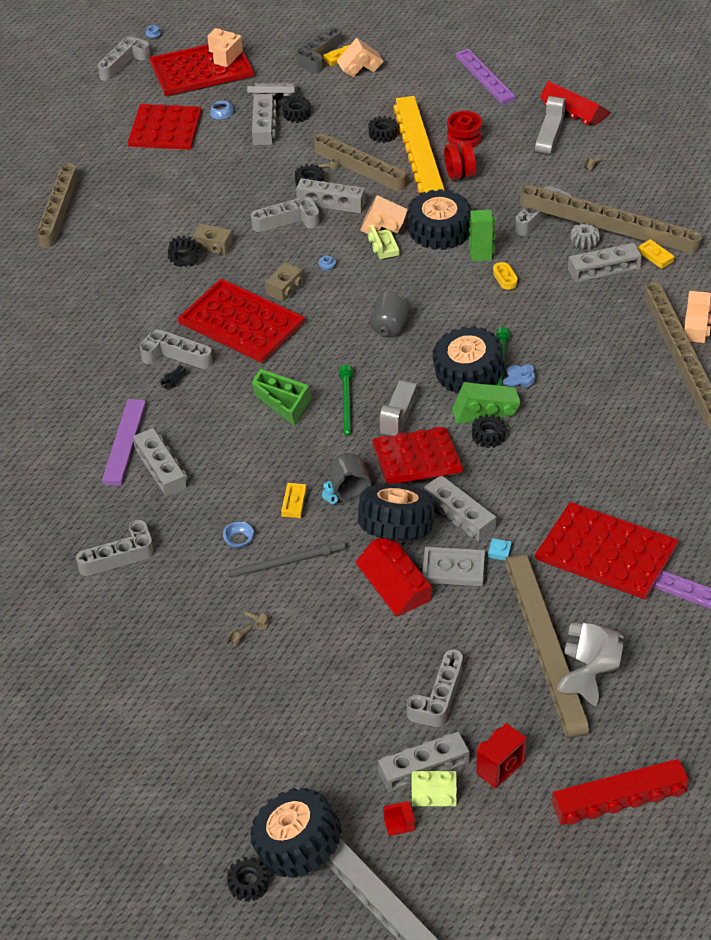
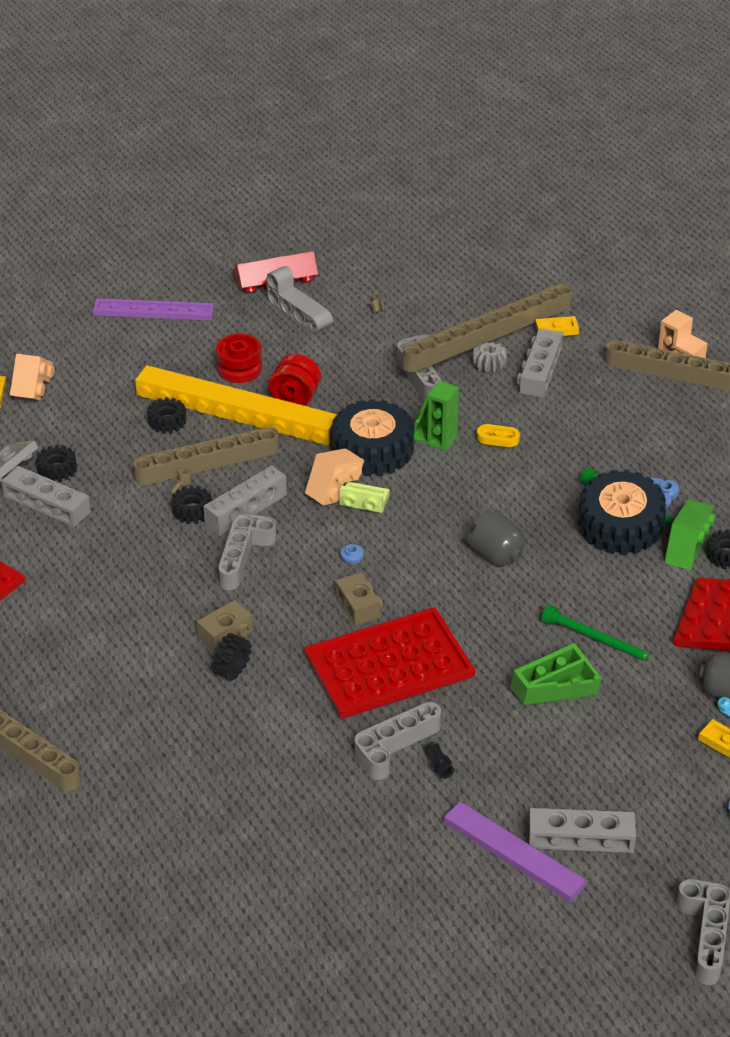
camera: 60 degrees left, 5 degrees down
(394, 415) = (659, 608): light grey beam -> none

